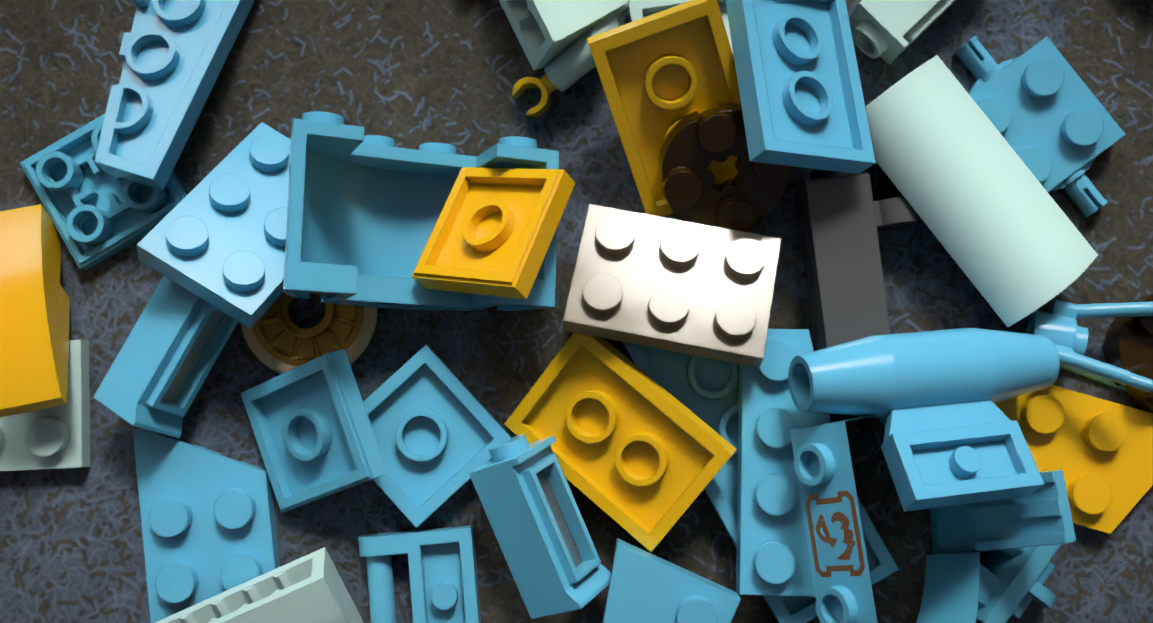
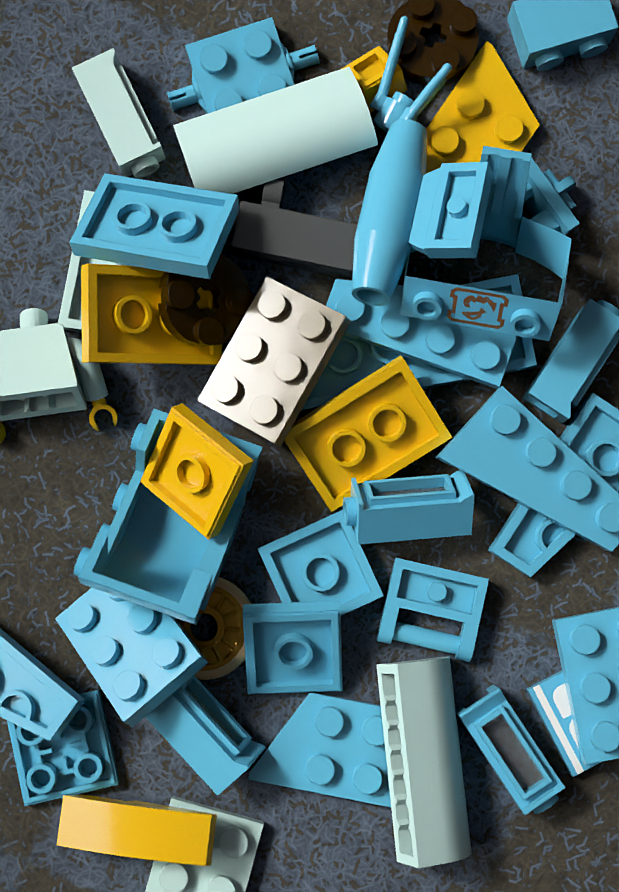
camera: 70 degrees left, 0 degrees up
(1091, 289) = (370, 77): none -> yellow slope

